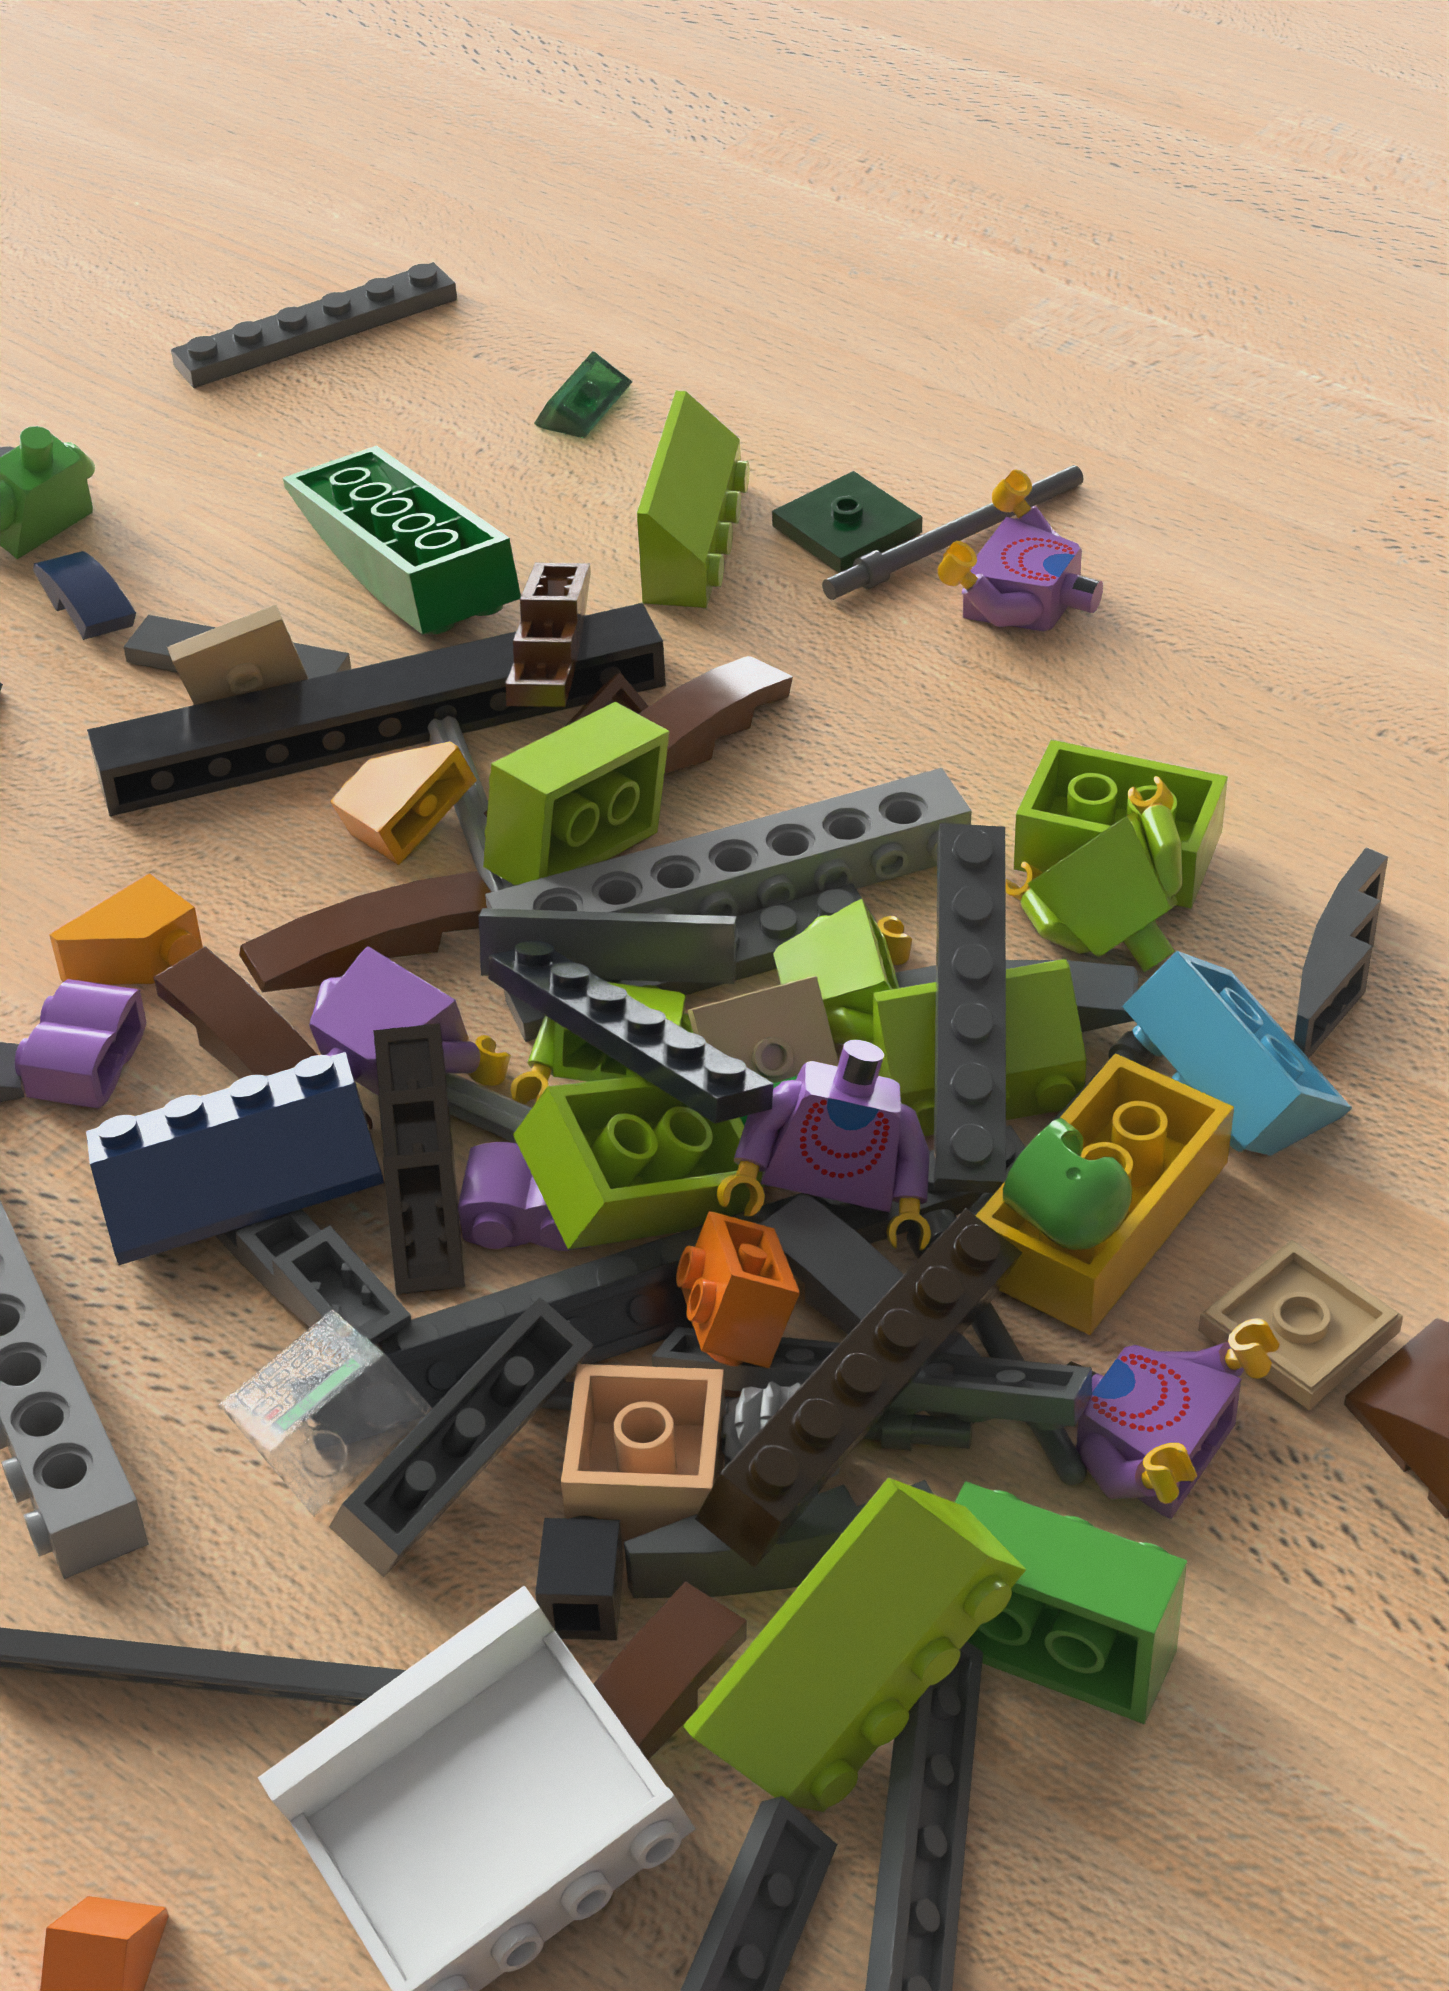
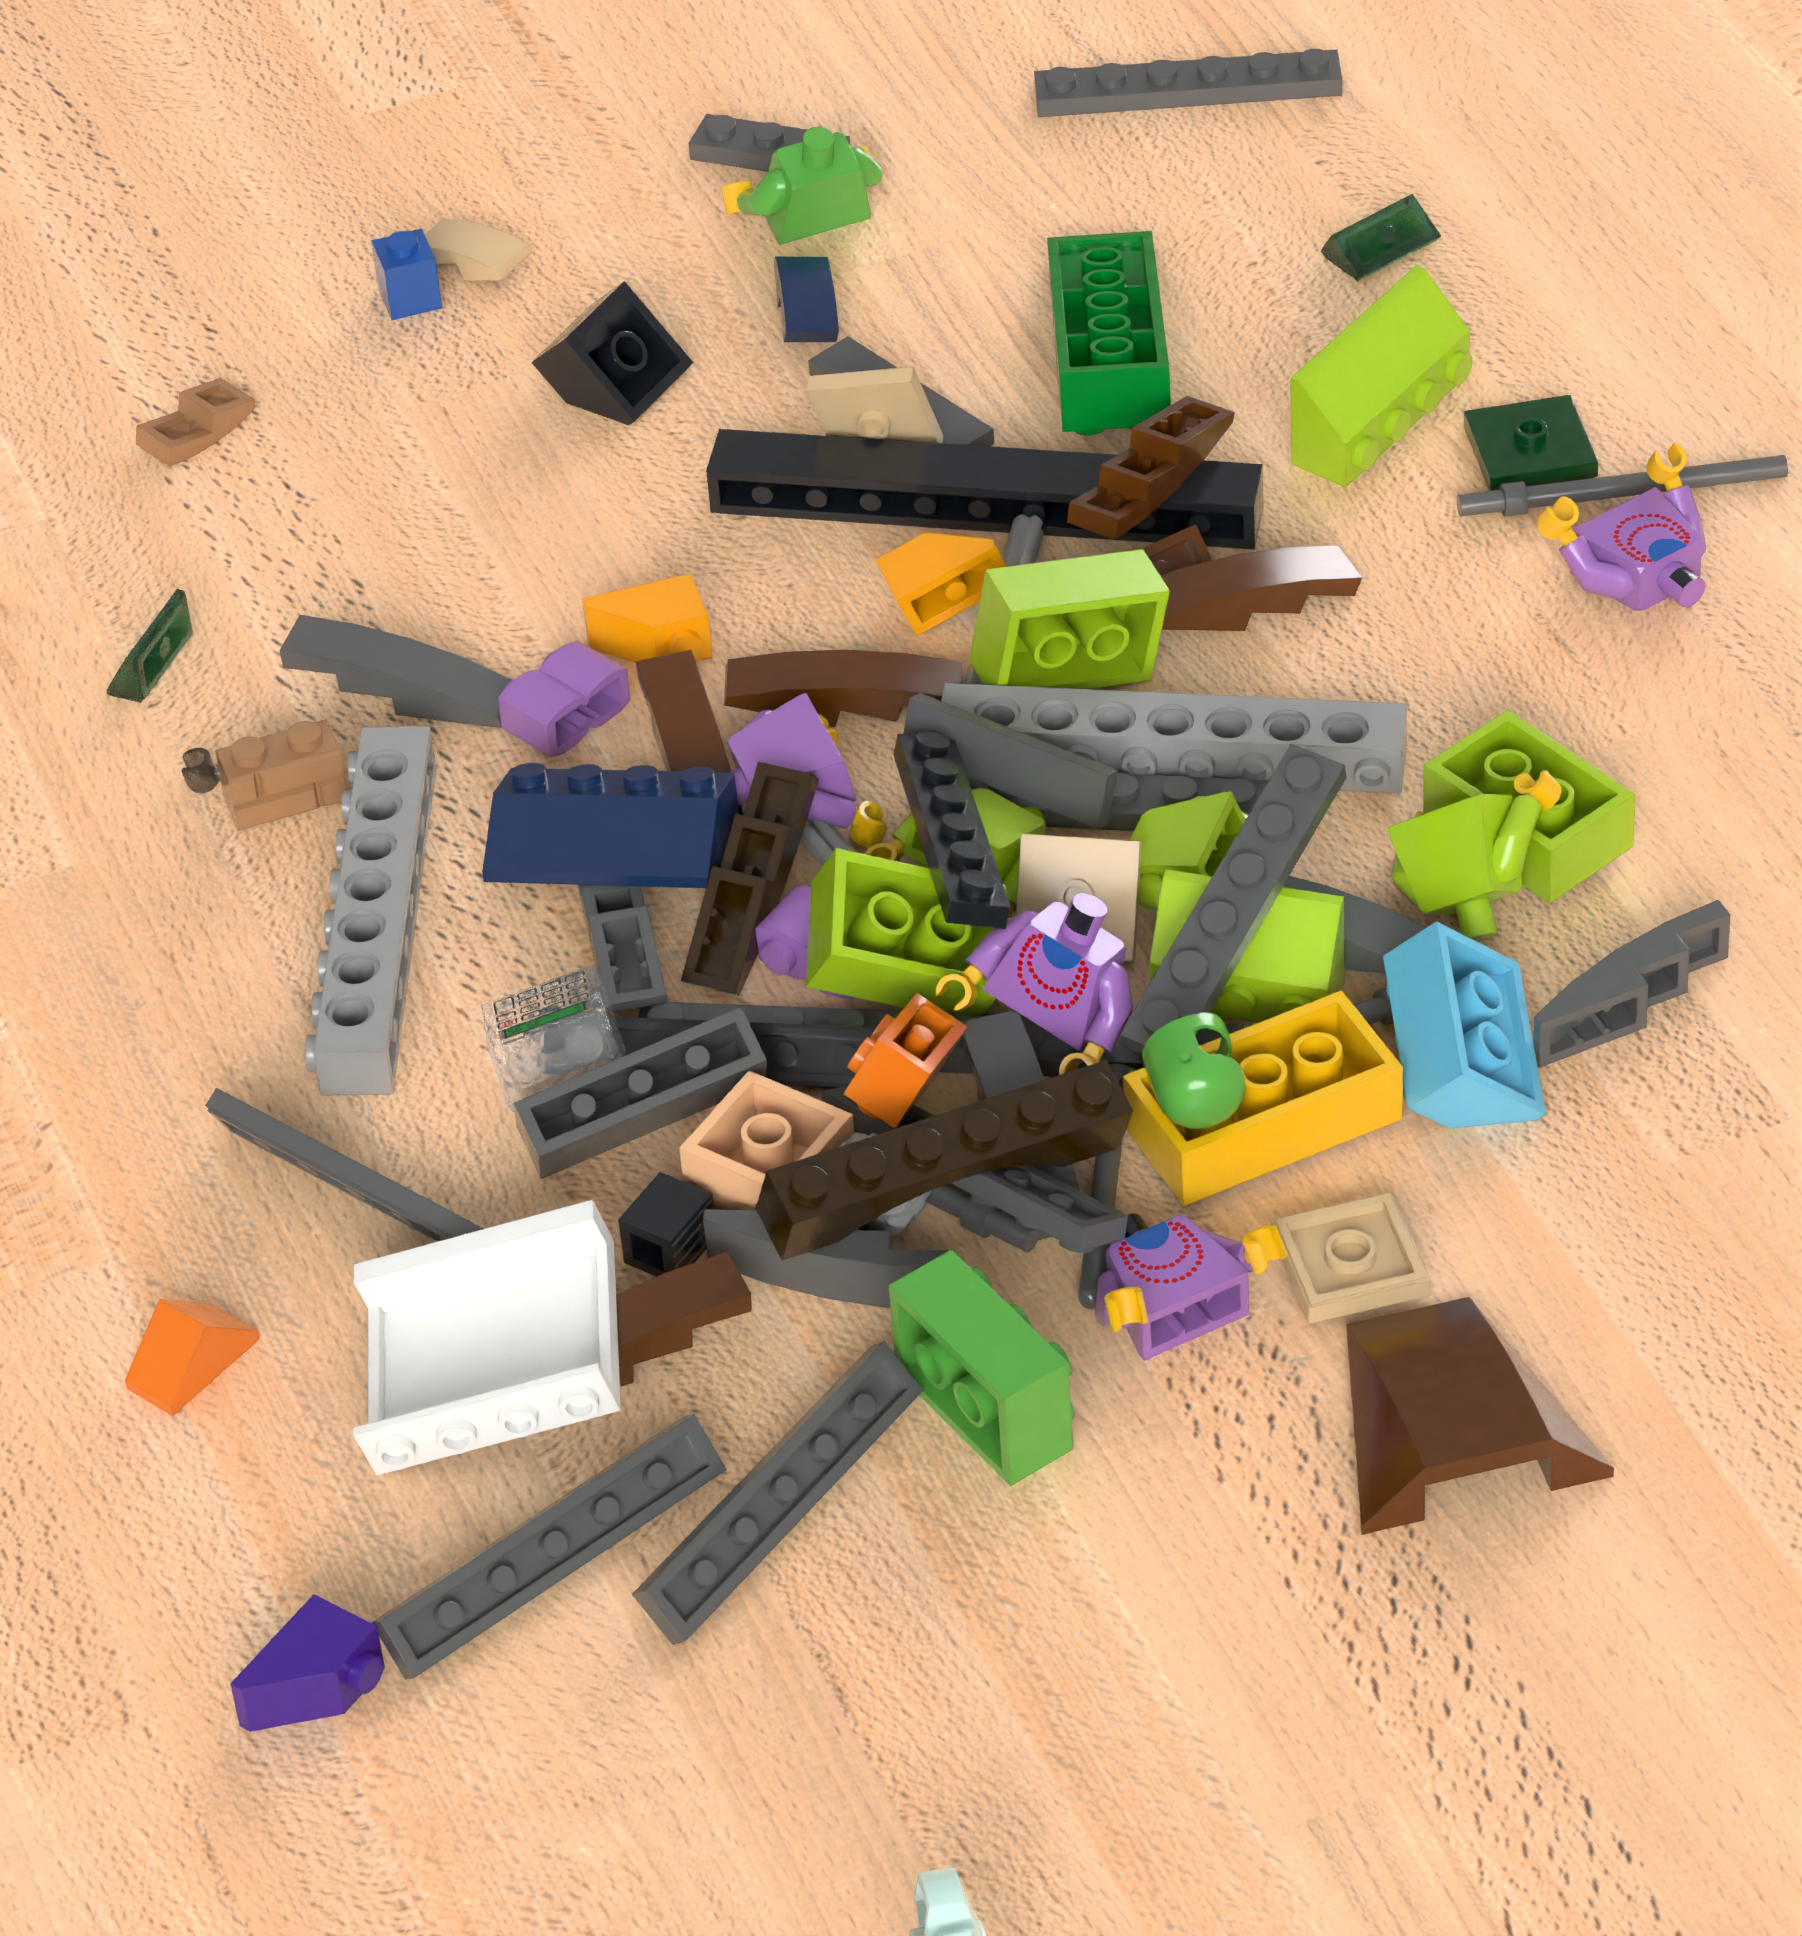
camera: 30 degrees right, 0 degrees up
(857, 1646) = (791, 1324): lime slope -> none

